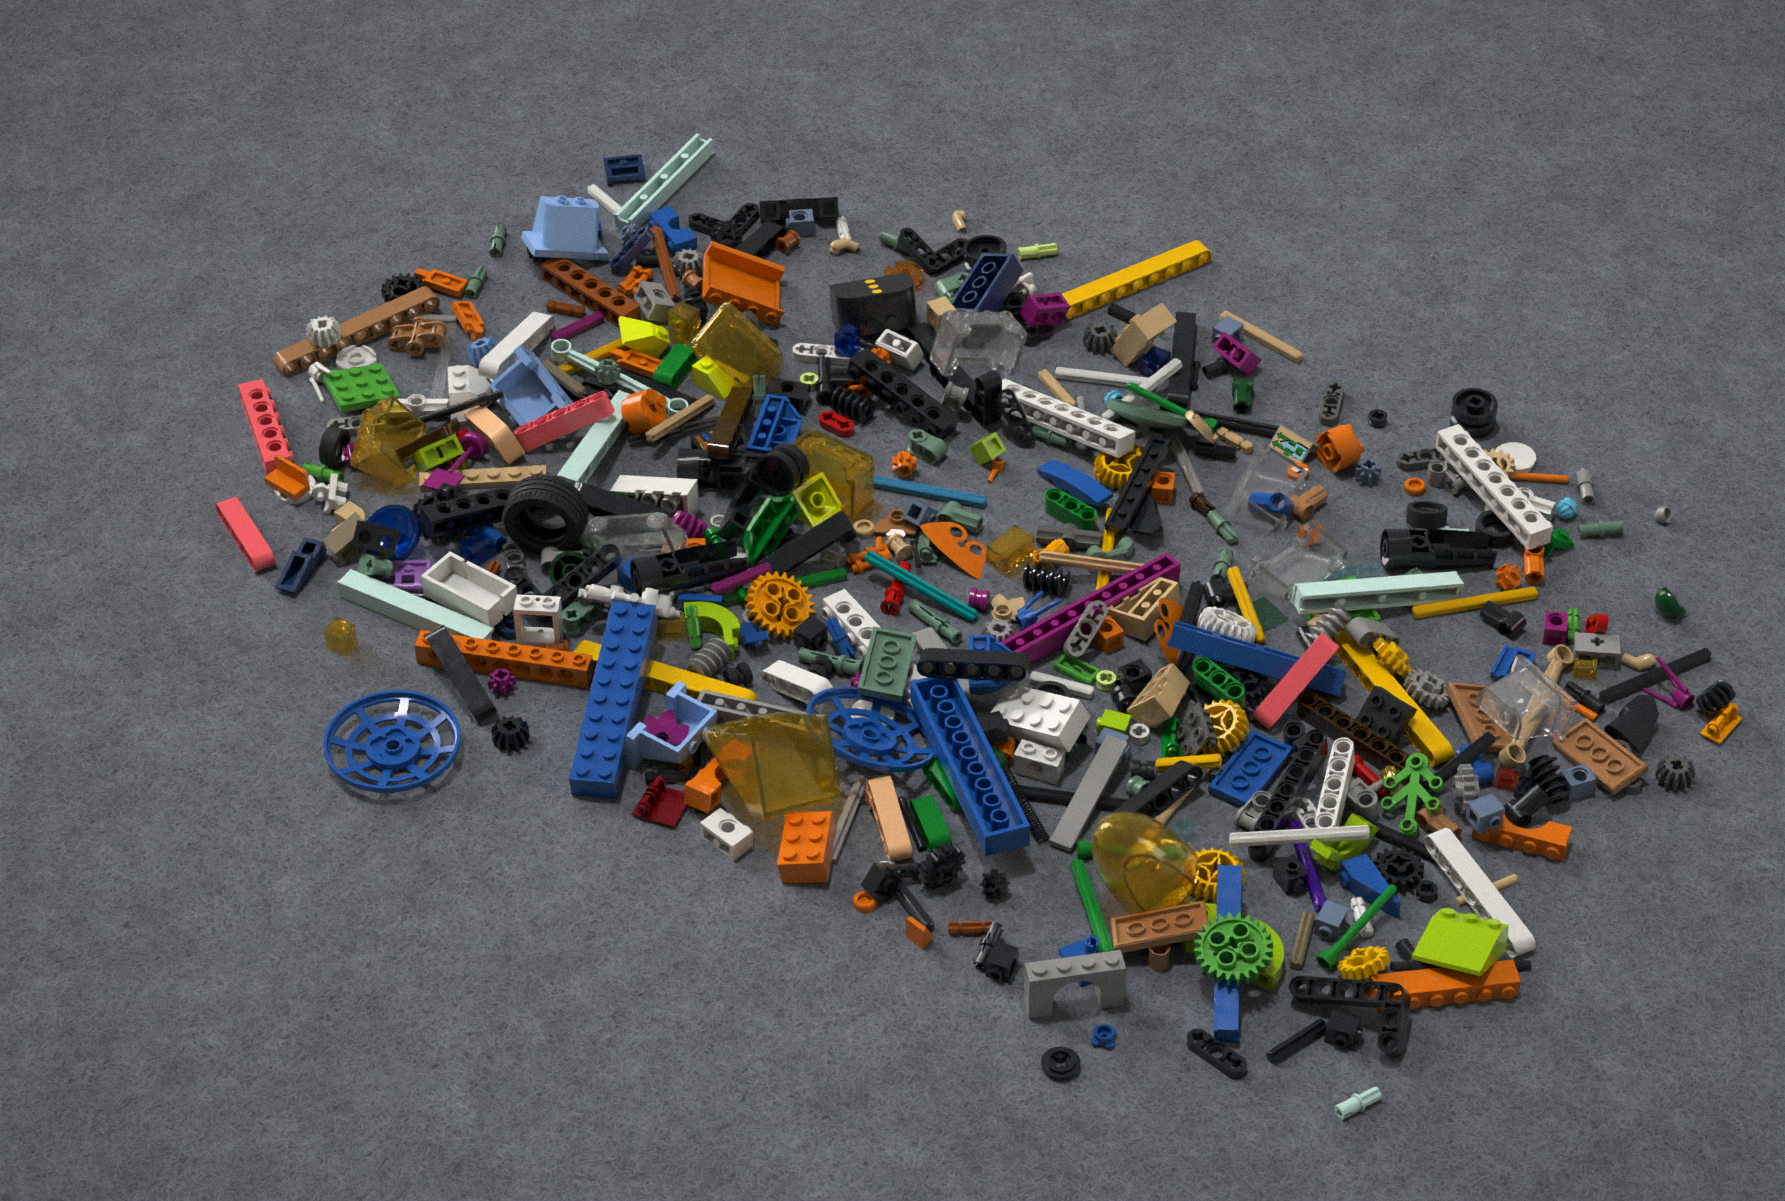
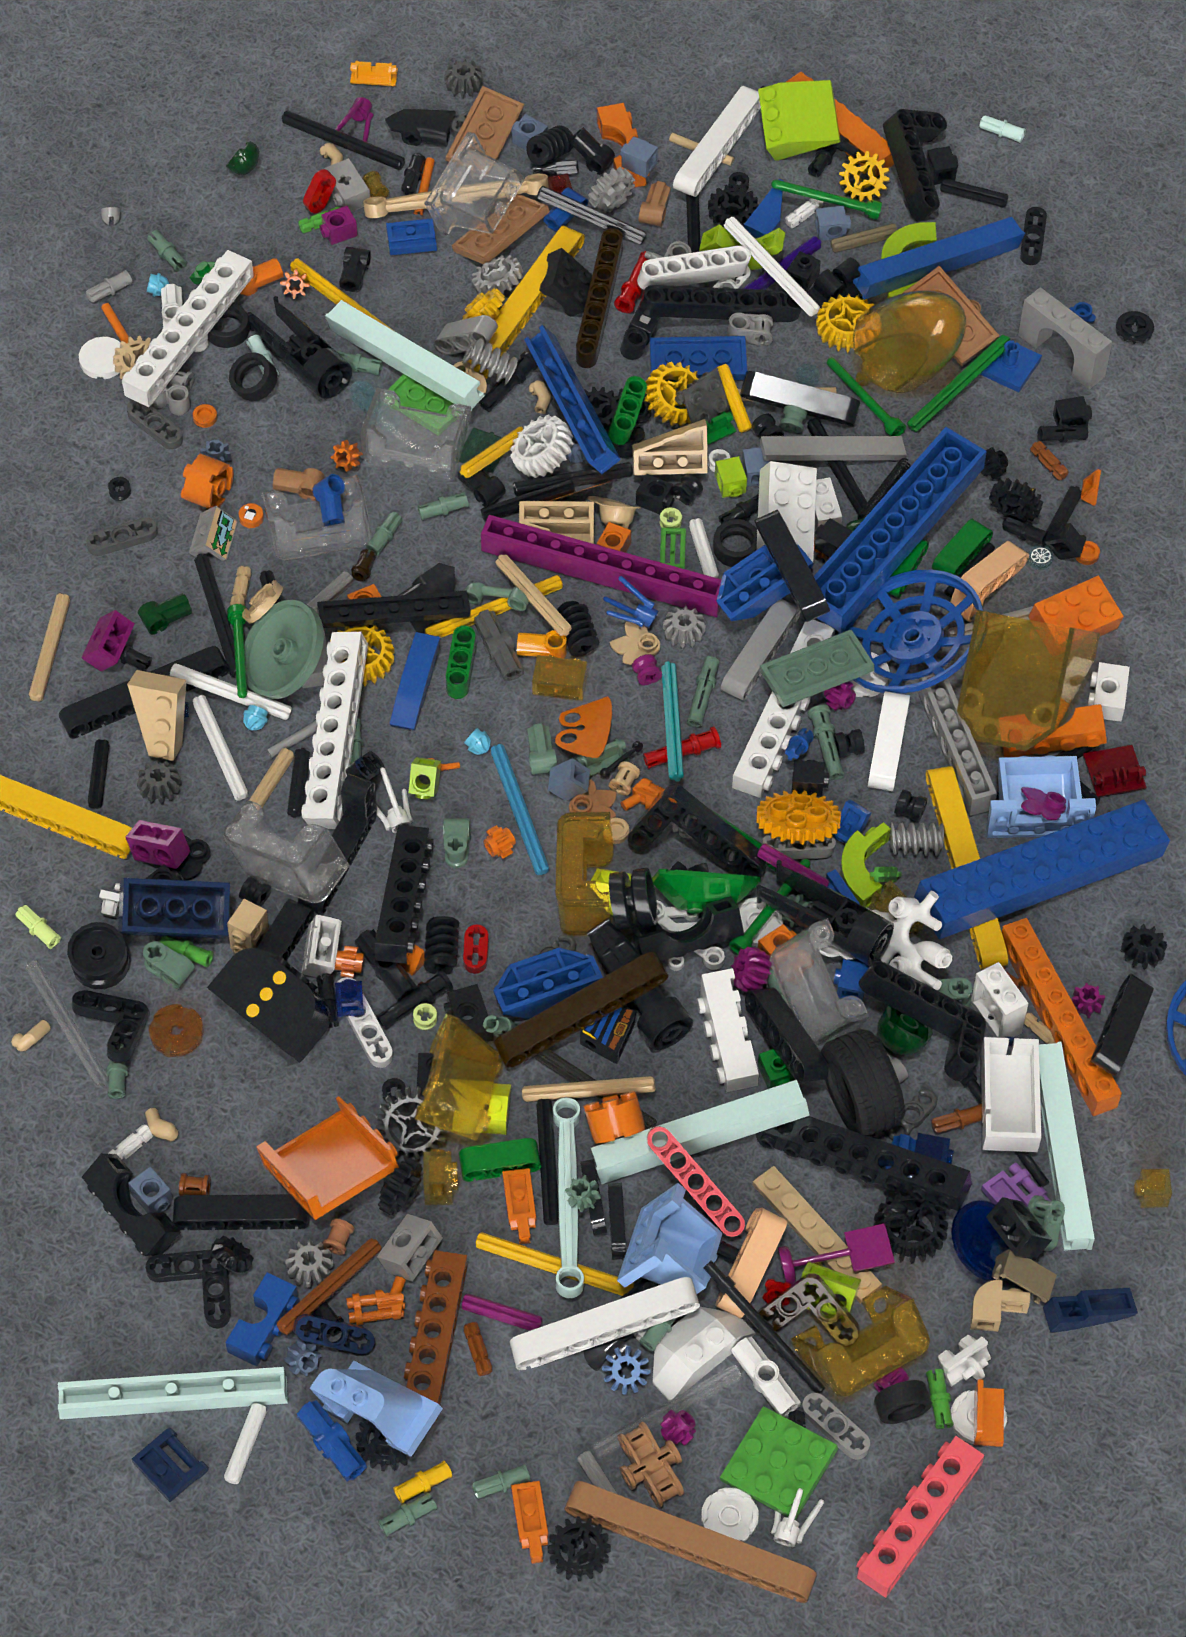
camera: 125 degrees left, 15 degrees up
(246, 534) = (1090, 1403): coral beam -> none
(323, 331) = (730, 1548): white gear -> none
(432, 355) = (678, 1427): none -> magenta gear
(468, 318) = (575, 1435): orange hinge -> none
(509, 252) = (422, 1482): none -> yellow pin
(564, 379) = (622, 1237): dark tan axle -> none
(643, 336) = (480, 1213): neon yellow slope -> none
(954, 397) = (372, 847): light grey piece -> none
(970, 429) = (396, 815): none -> white plant
(996, 492) = (478, 742): none -> medium azure plate
(1082, 646) = (636, 545): light grey beam -> none
(1141, 645) = (614, 511): none -> tan piece
(1230, 326) = (71, 672): sand blue brick -> none
(1233, 948) = (950, 235): bright green gear -> none
(1261, 896) = (836, 282): none -> black panel
(1295, 681) = (575, 343): coral beam -> none
(1388, 770) = (628, 250): clear yellow hinge -> none
(1412, 791) = (674, 223): bright green plant -> none
(1474, 411) = (65, 406): black wheel -> none
(1715, 697) = (344, 79): black gear -> none

